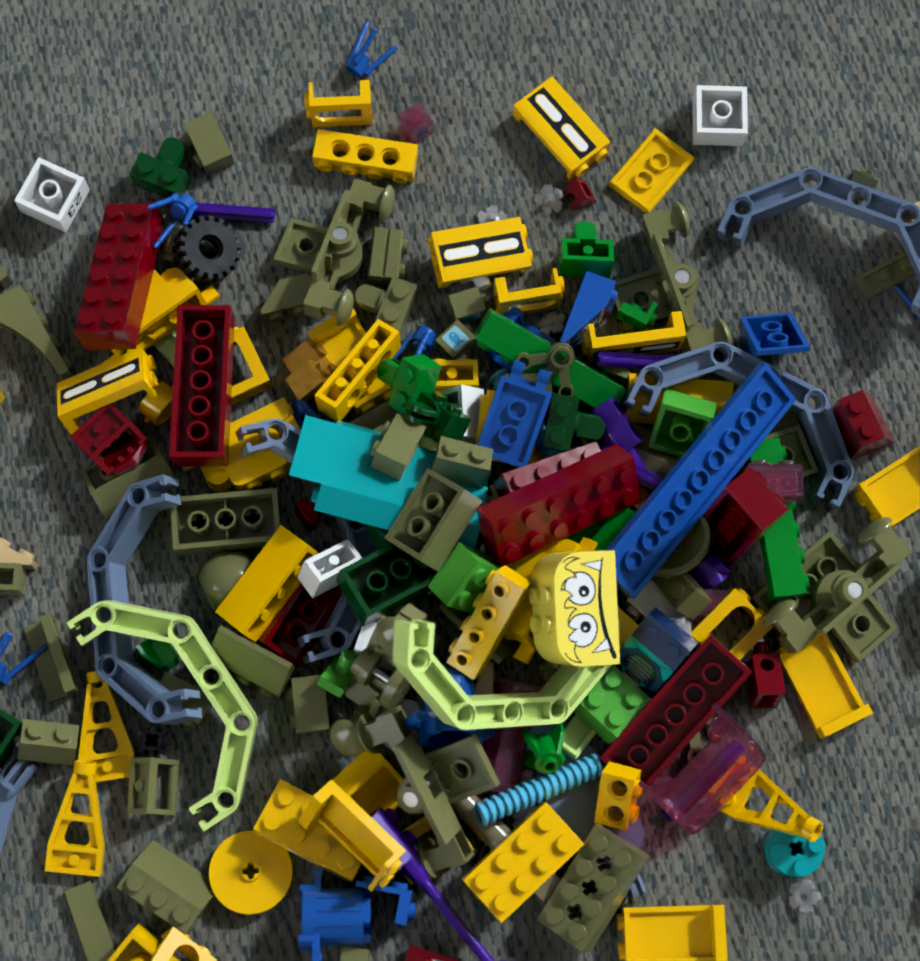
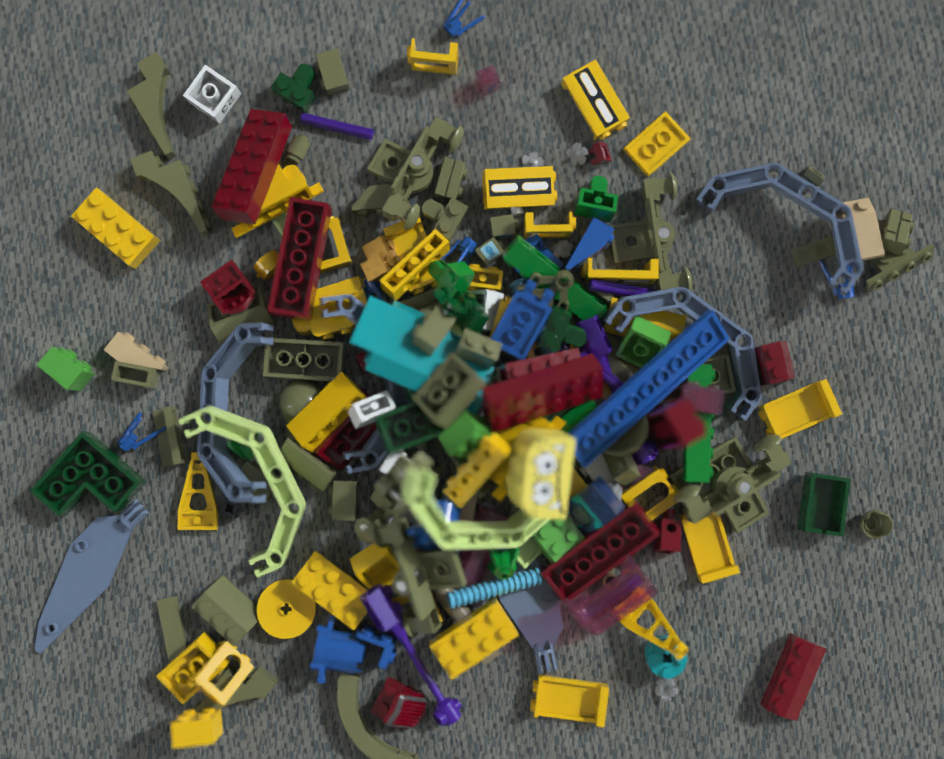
camera: 10 degrees right, 10 degrees up
(48, 742) = (157, 497): olive brick -> none
(77, 858) = (167, 579): yellow plate -> none
(105, 385) = (231, 247): yellow panel -> none
(143, 786) = (220, 536): olive tile -> none
(181, 208) = (305, 119): blue plant -> none
(194, 262) = (305, 159): black tyre -> none
(338, 675) = (365, 485): bright green tile -> none
(355, 146) = (422, 85): yellow brick -> none
(355, 831) = (360, 601): yellow panel -> none
(575, 888) = (507, 661): olive brick -> none
(613, 794) = (548, 603): yellow brick -> none
(634, 315) = (623, 254): green bracket -> none
(719, 115) = (715, 109): white brick -> none
(771, 335) = (721, 287): blue slope -> none

